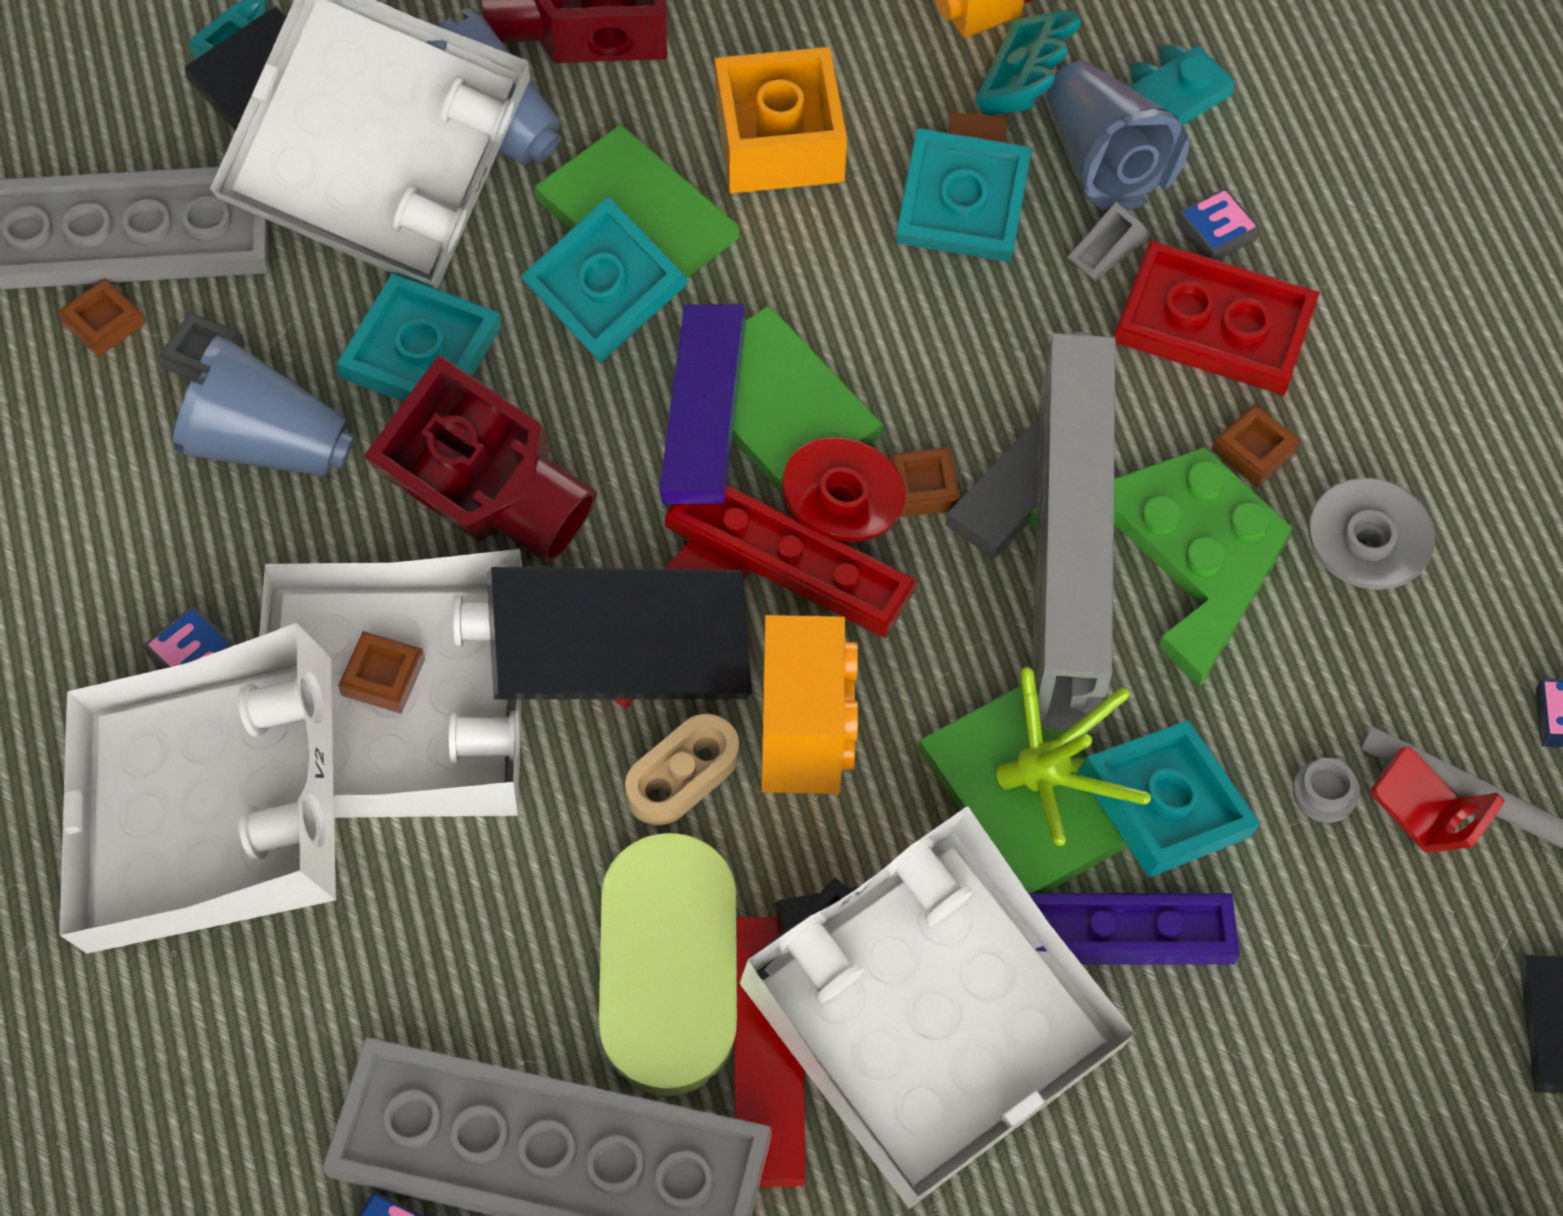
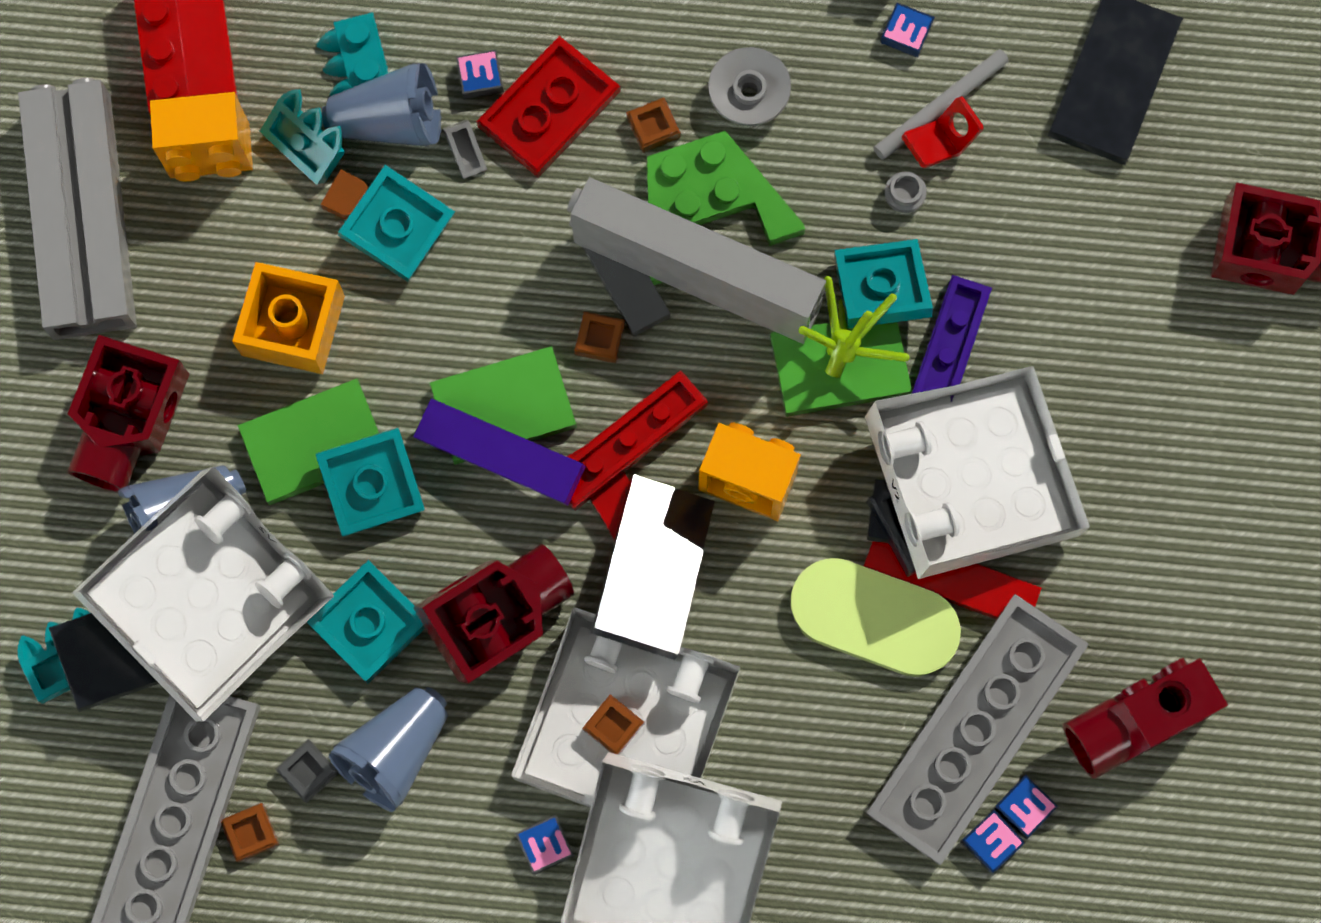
camera: 65 degrees left, 15 degrees up
(679, 772) = (753, 563): tan plate -> none
(846, 471) = (592, 373): red dish -> none

